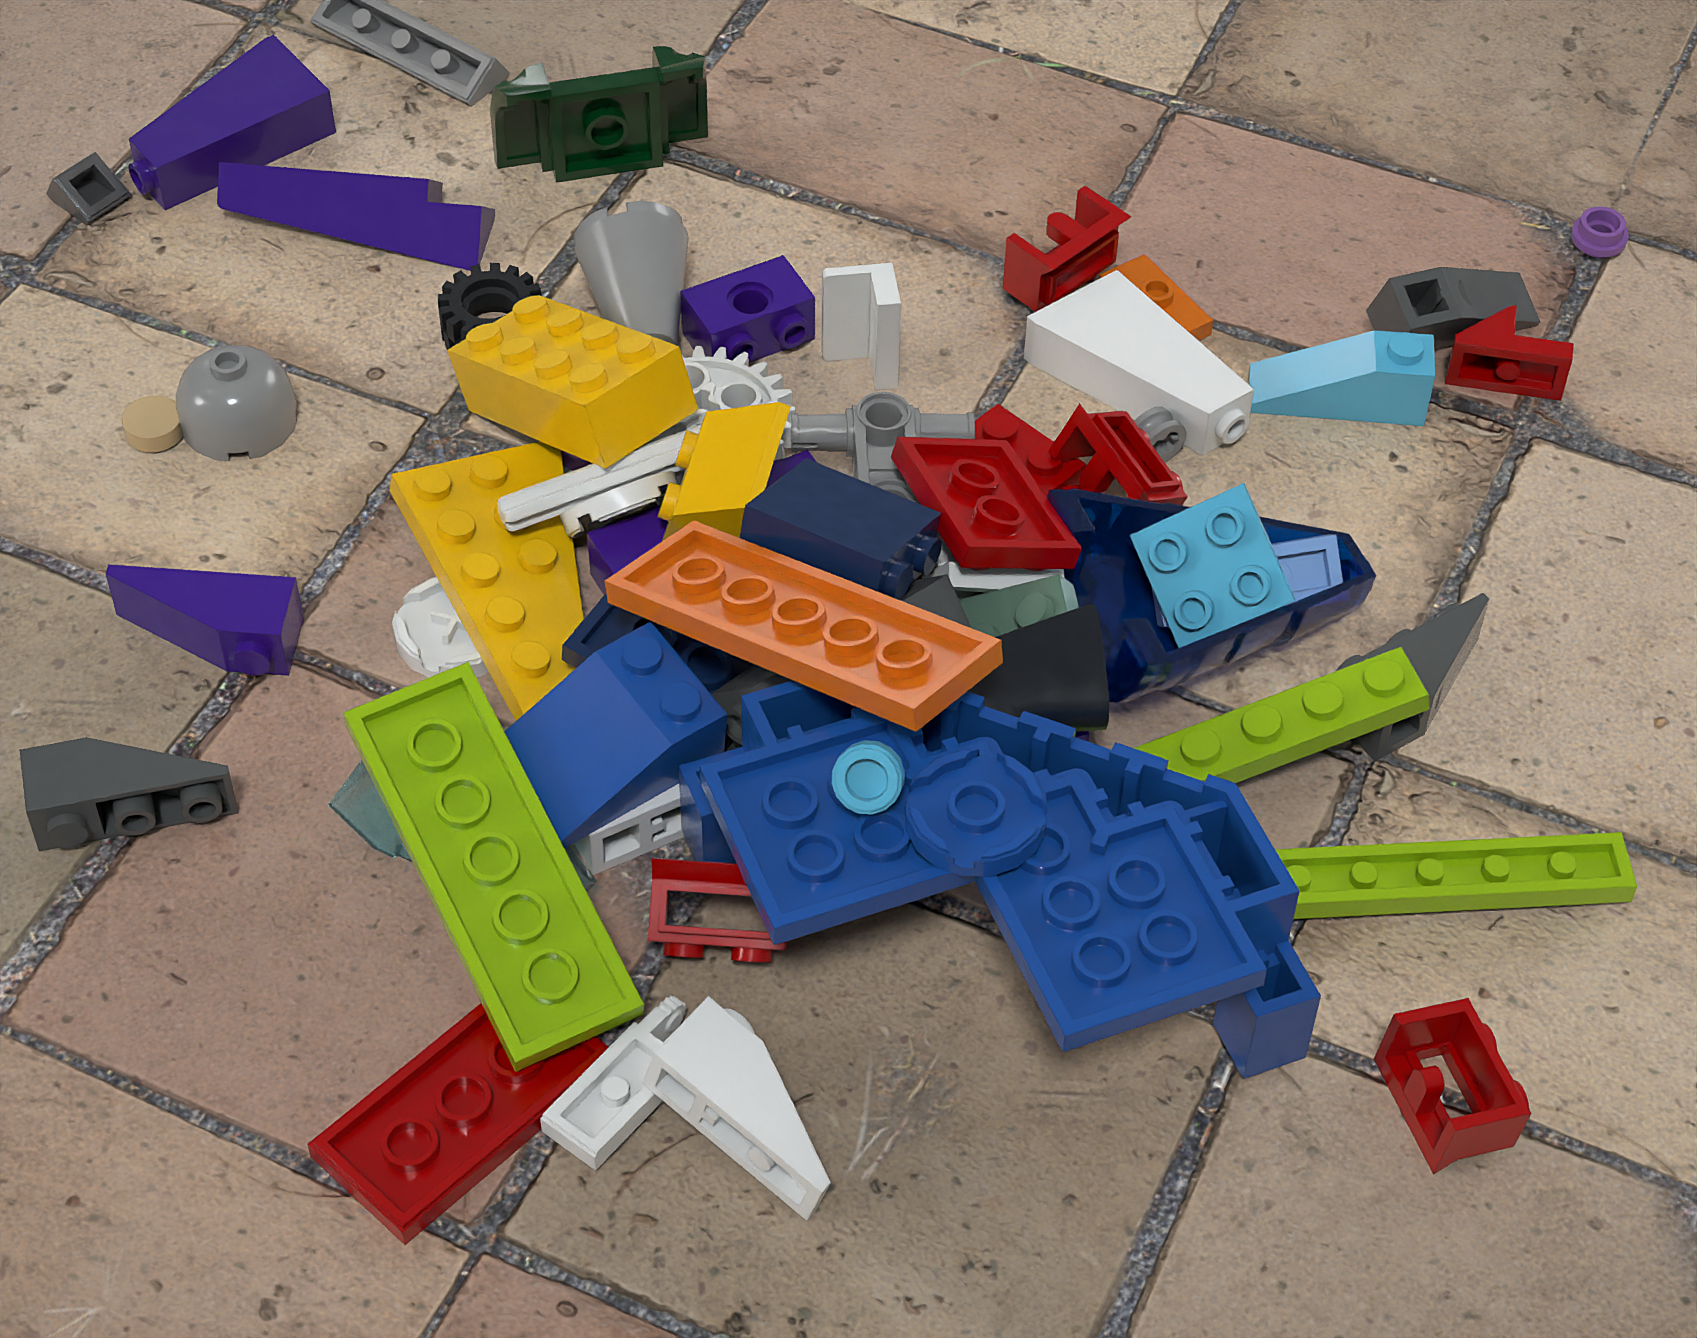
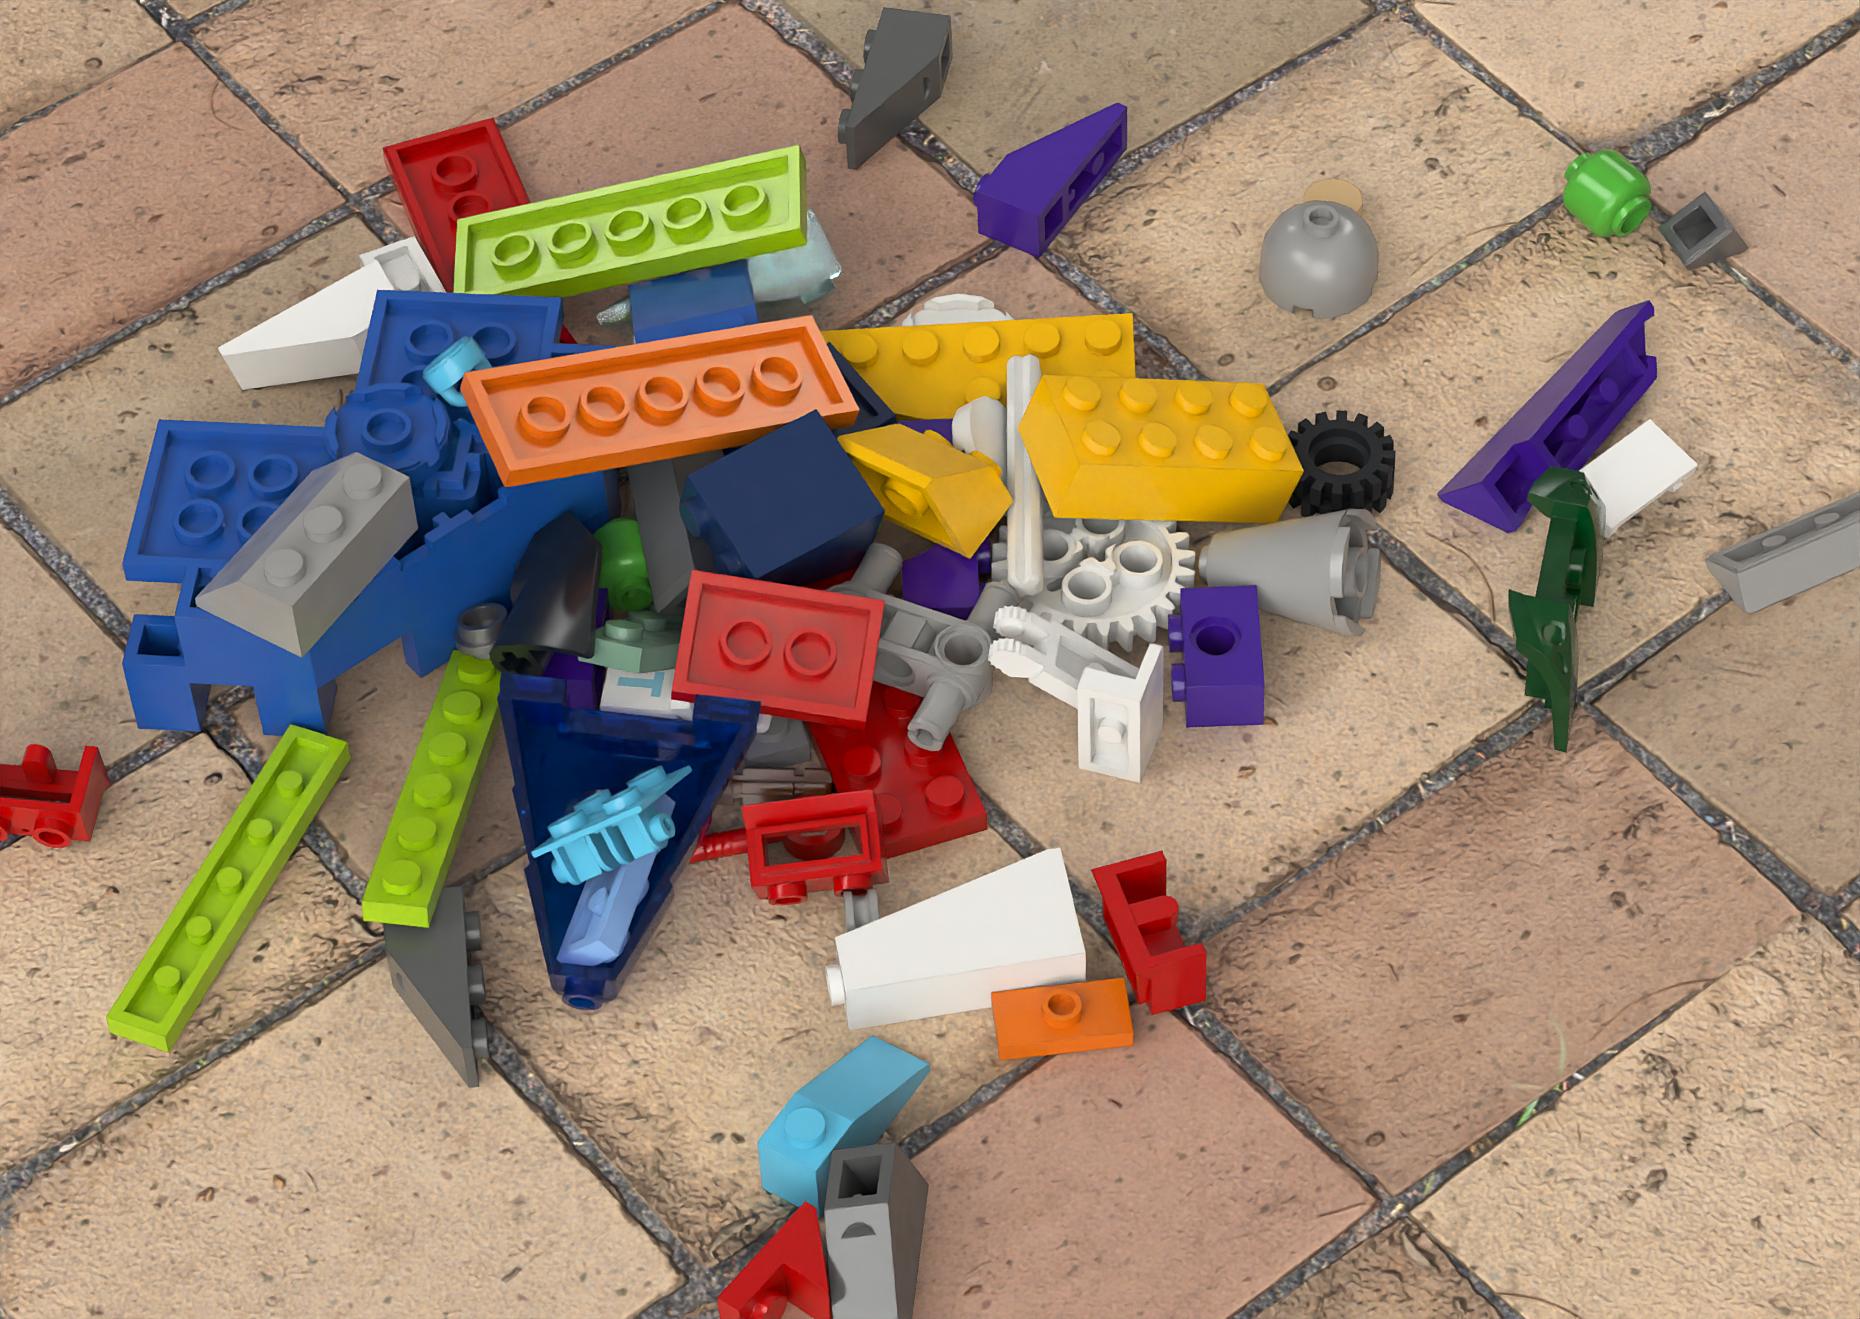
camera: 120 degrees right, 0 degrees up
(77, 238) = (1607, 193): none -> bright green head
(242, 115) = (1740, 351): dark purple slope -> none
(426, 145) = (1637, 473): none -> white hinge
(842, 371) = (1057, 653): none -> white hinge
(1173, 785) = (315, 553): none -> light grey slope

